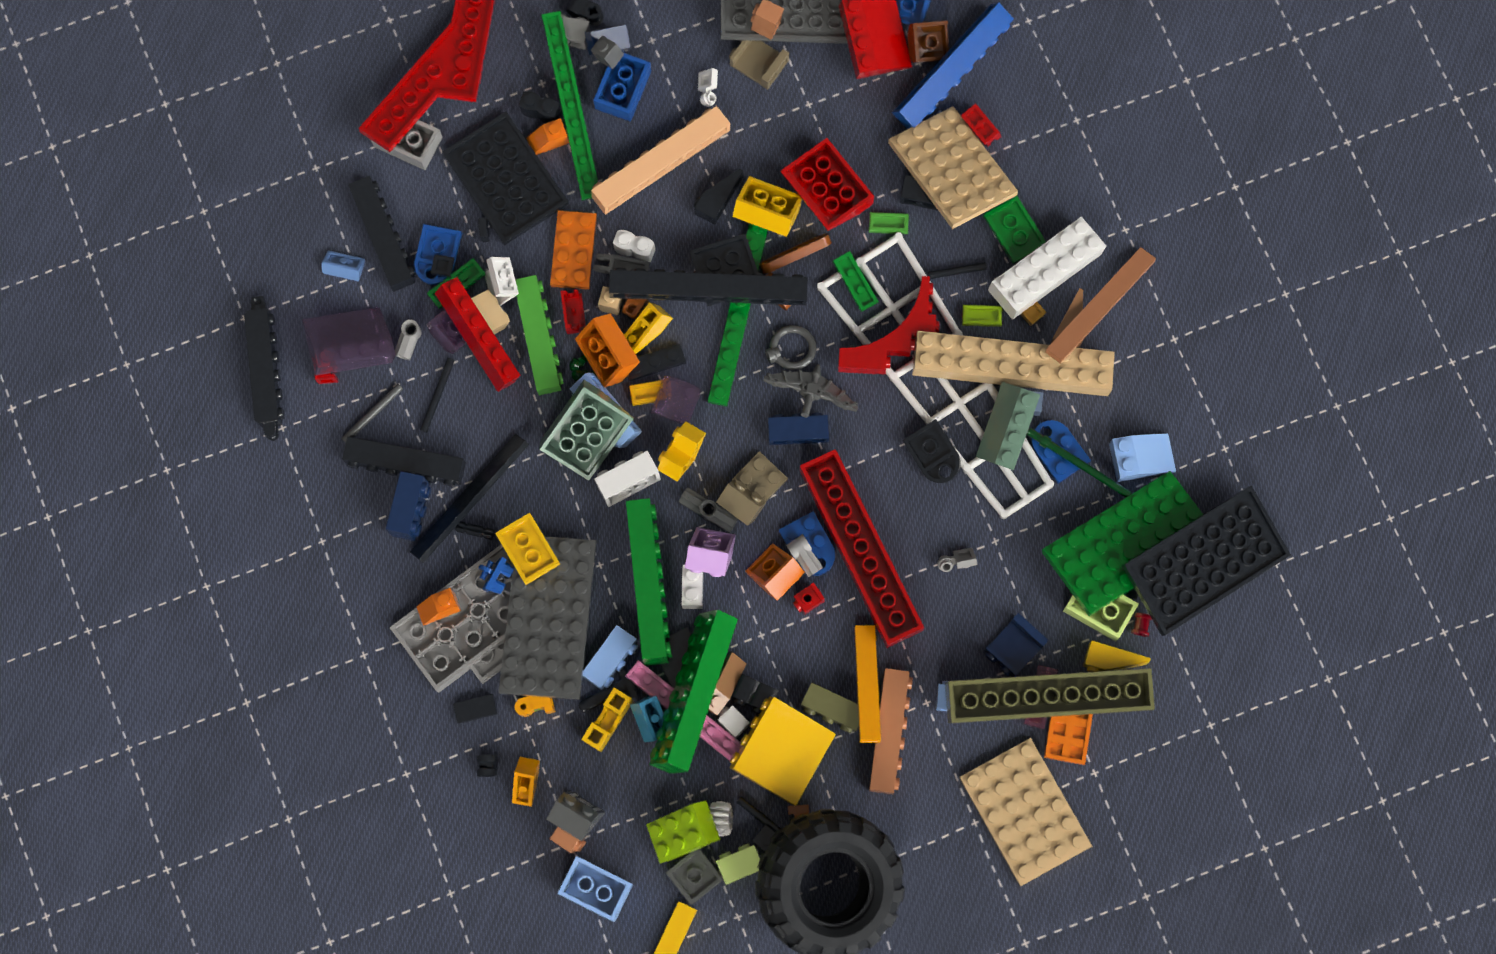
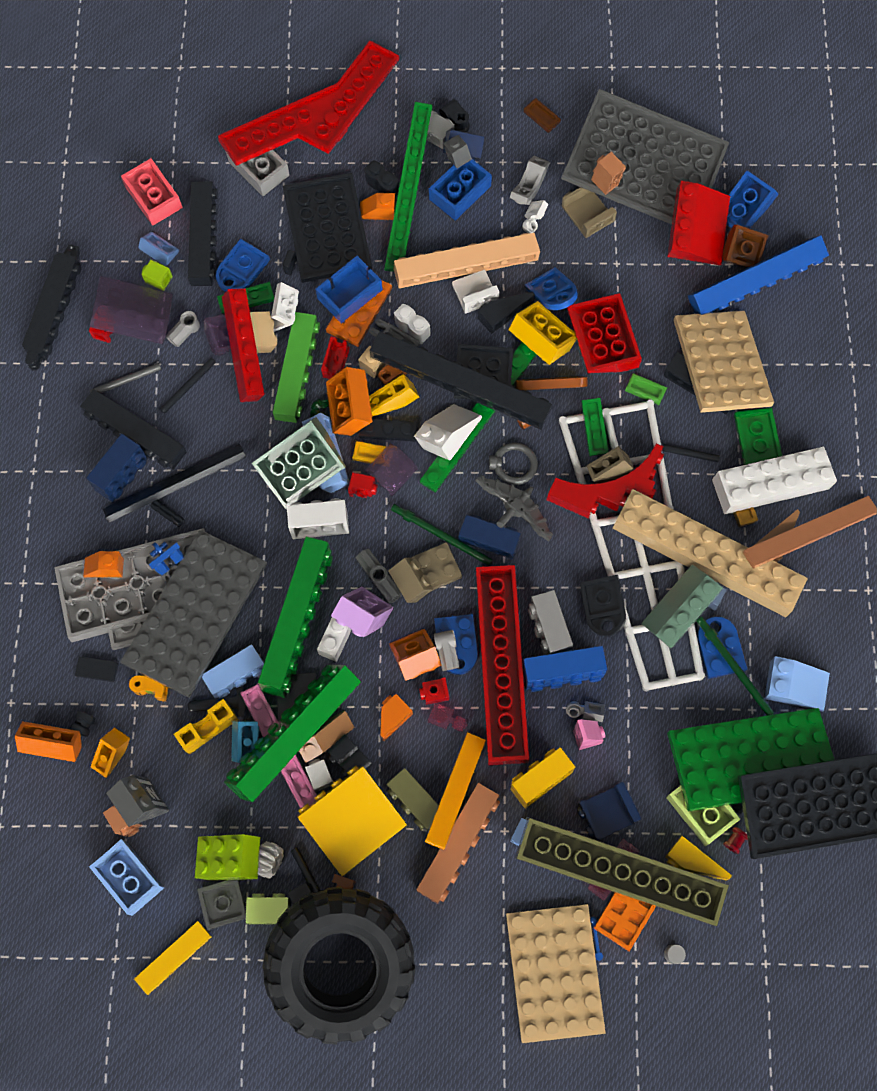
camera: 20 degrees right, 5 degrees down
(311, 210) = (151, 191): none -> coral brick
(355, 294) = (156, 275): none -> lime brick
(442, 266) = (240, 278): black tile -> none
(463, 795) = (48, 741): none -> orange brick
(527, 548) = (201, 544): yellow plate -> none
(559, 236) = (350, 290): none -> blue piece
(655, 428) = (362, 485): none -> red brick
(681, 187) = (475, 291): none -> white bracket
(681, 451) = (376, 514): yellow brick -> none
(690, 52) = (531, 181): none -> light grey arch
(713, 440) = (409, 516): none -> dark green bar
(715, 341) = (447, 431): none -> white slope
(757, 156) = (552, 288): none -> blue plate
(778, 637) = (393, 715): none -> orange slope
(825, 620) = (442, 716): none -> clear pink plate
(887, 316) = (610, 466): none -> dark tan brick
(892, 493) = (549, 624): none -> light grey brick
(922, 528) = (564, 668): none -> blue brick
(941, 639) = (541, 777): none -> yellow brick
(968, 581) = (588, 733): none -> bright pink slope
(981, 125) = (763, 335): red hinge -> none
(981, 315) = (697, 501): lime tile -> none
(1058, 780) = (599, 956): none -> blue hinge
(1126, 750) = (674, 954): none -> light grey piece

